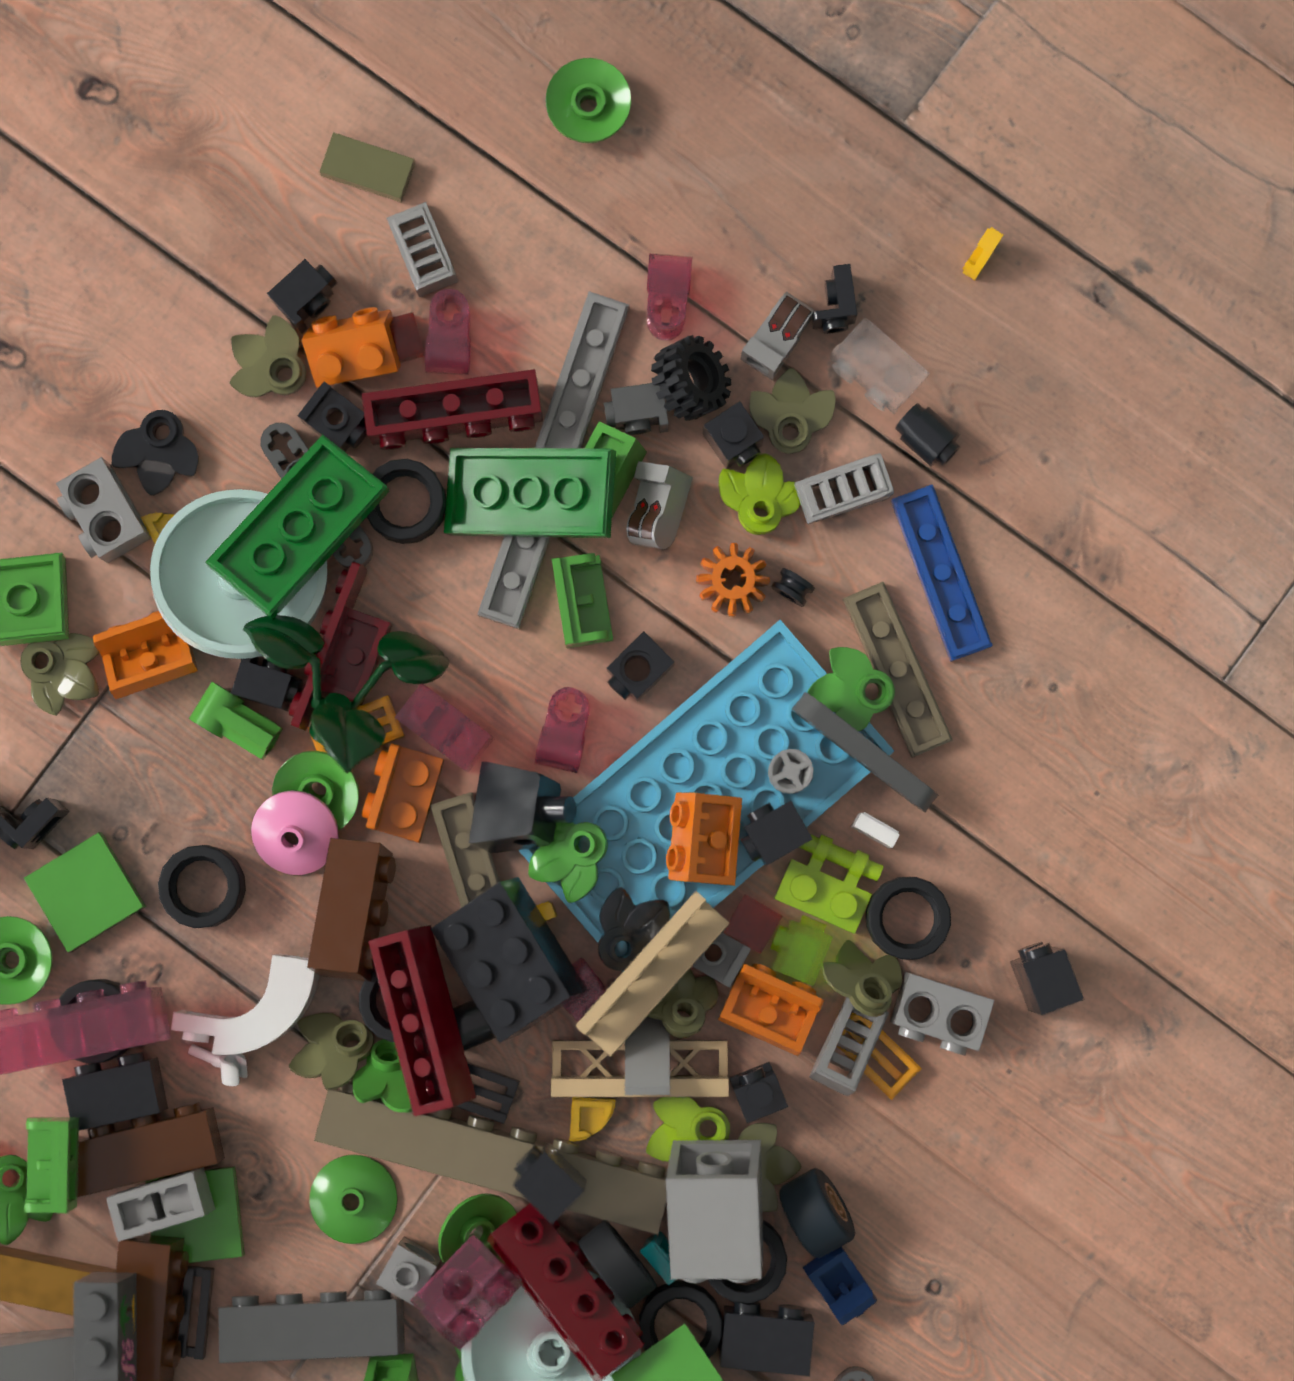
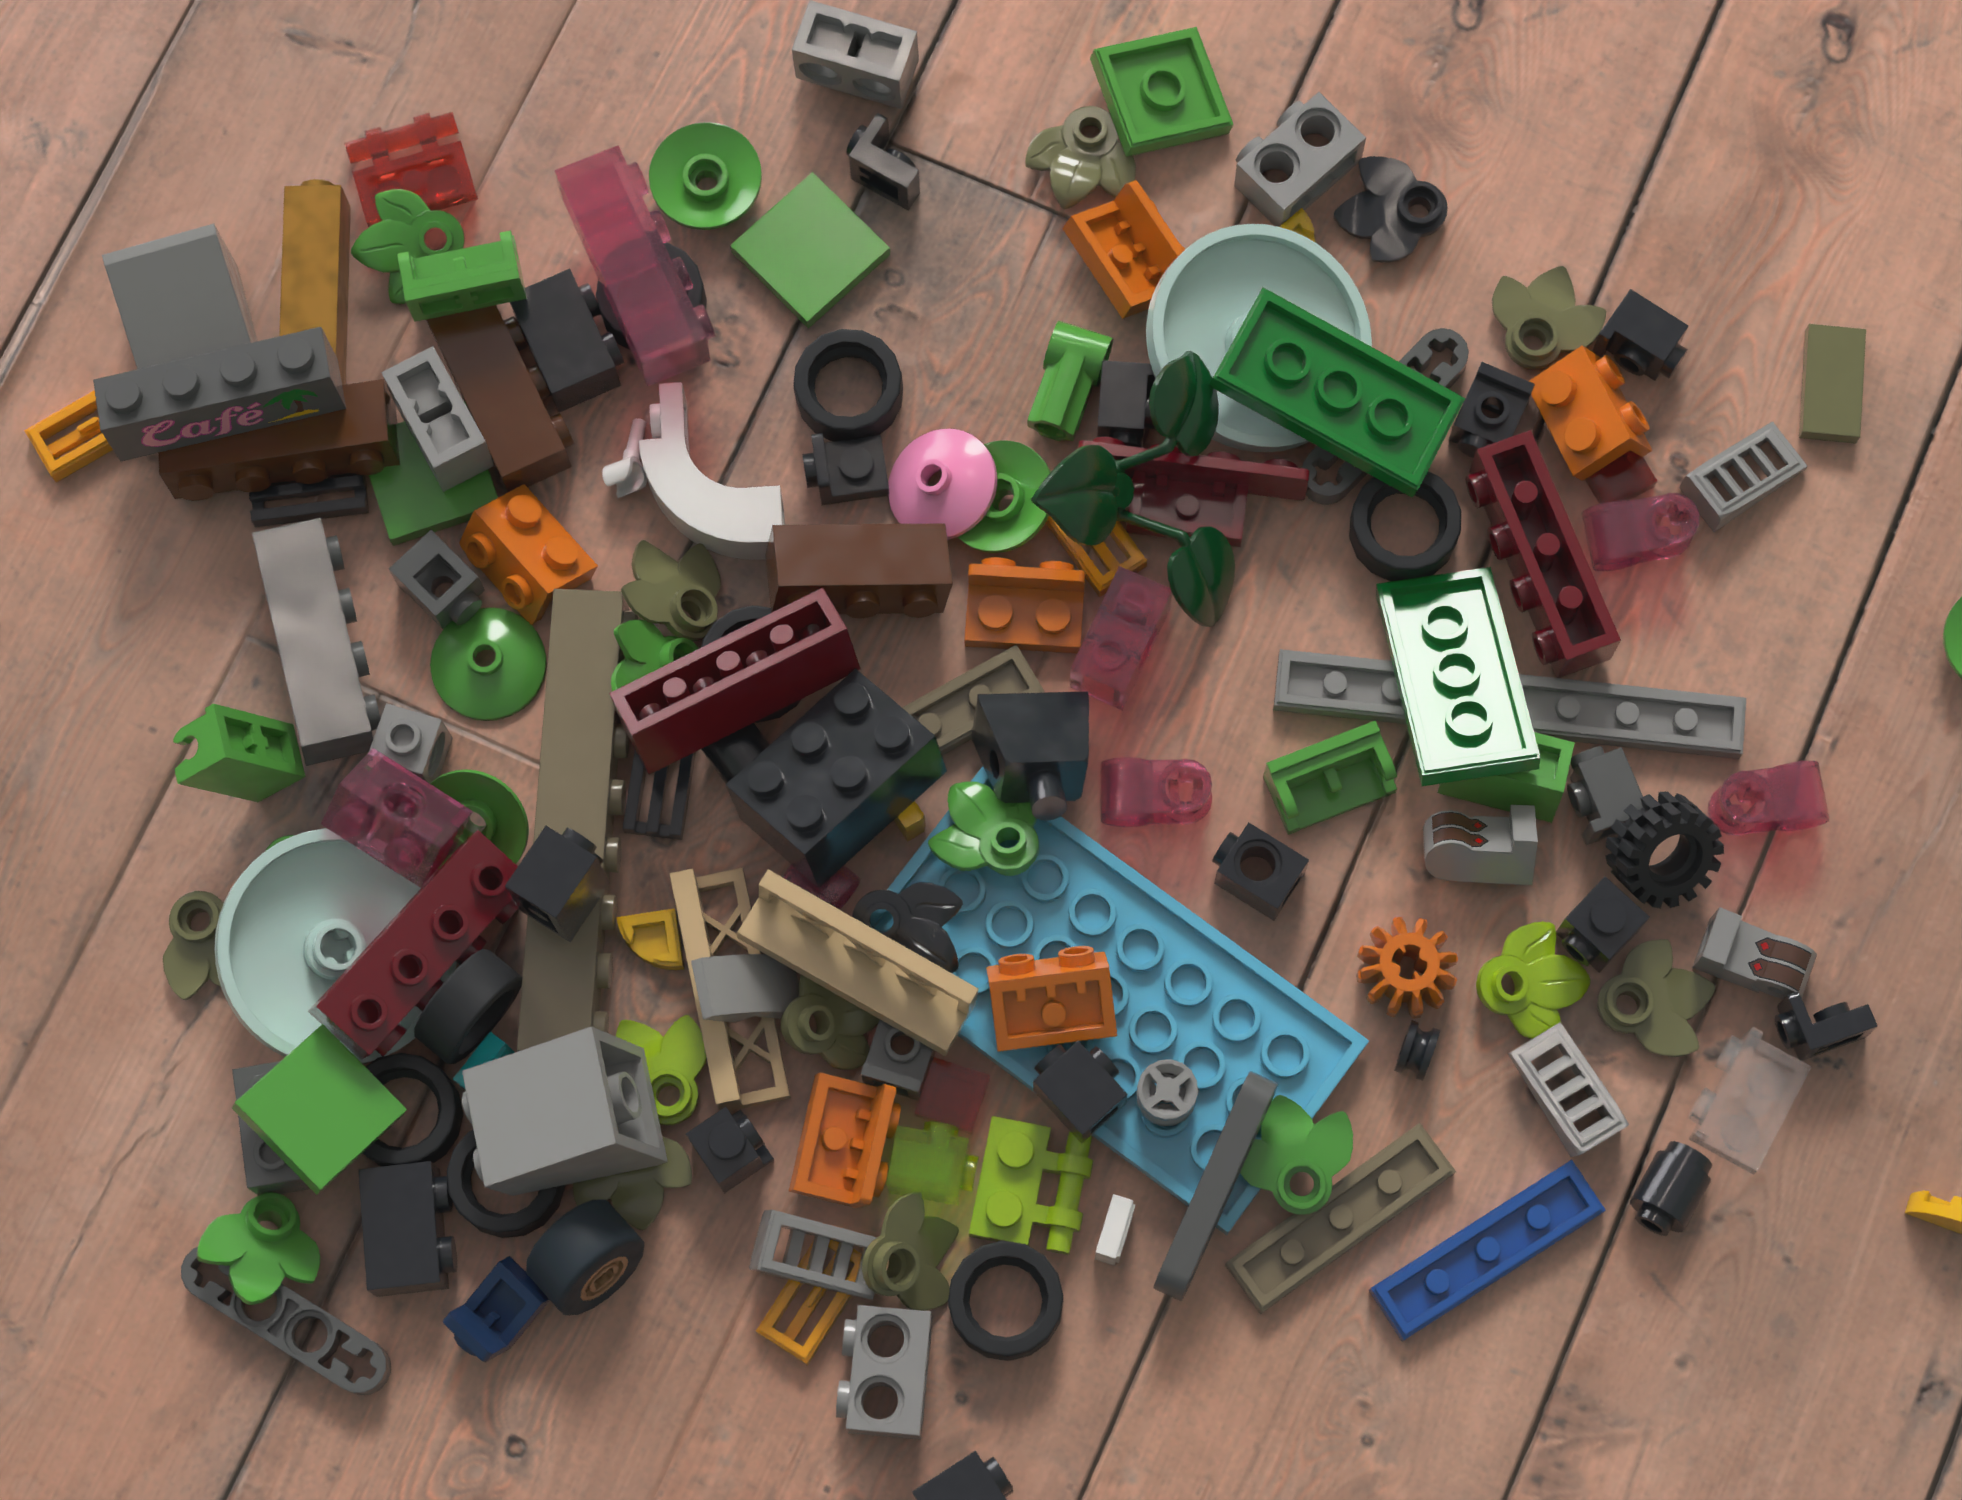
camera: 80 degrees right, 10 degrees down
(265, 901) = (846, 469): none -> black bracket
(274, 1236) = (427, 567): none -> dark grey brick
(275, 1155) = (525, 552): none -> orange bracket

